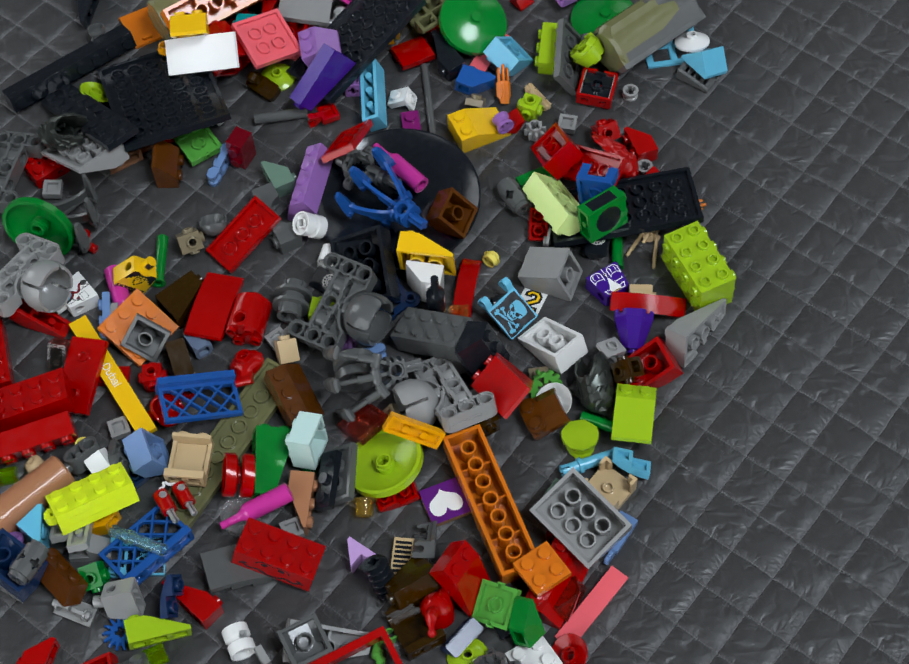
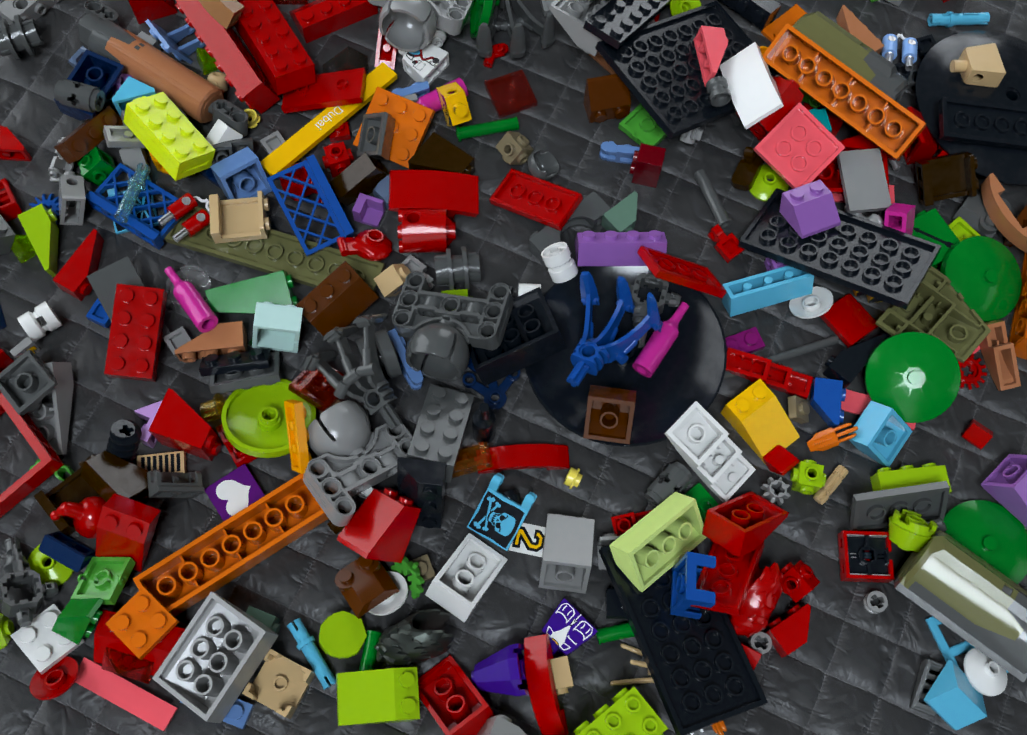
camera: 70 degrees right, 10 degrees up
(130, 238) = (510, 93): none -> clear red tile
(157, 76) = (710, 48): none -> coral slope
(172, 587) = (70, 239): dark blue slope -> none
(188, 25) = (773, 54): yellow slope -> none
(198, 77) = (718, 91): none -> dark grey wheel
(210, 361) = (368, 210): none -> medium lavender panel
(239, 475) = (220, 266): red wheel -> none
(245, 594) = (98, 315): none -> blue plate
(320, 77) = (765, 220): dark purple slope -> none
(378, 524) = (183, 429): none -> red slope
(391, 65) = (813, 304): none -> white dish
(402, 97) = (777, 325): white bracket -> none
(419, 248) = (542, 380): yellow slope -> none
(419, 276) = (514, 409): white slope -> none
(437, 116) = (772, 374): none -> red slope
(496, 160) = (709, 451): none -> white slope
(503, 122) = (770, 448): medium lavender wheel -> none
(568, 123) = (799, 529): light grey plate -> none
(602, 214) = (646, 599): green brick -> none
(611, 348) = (465, 649): light grey bracket -> none
(624, 459) = (313, 705): medium azure slope -> none
(627, 369) = (436, 675): dark brown brick -> none

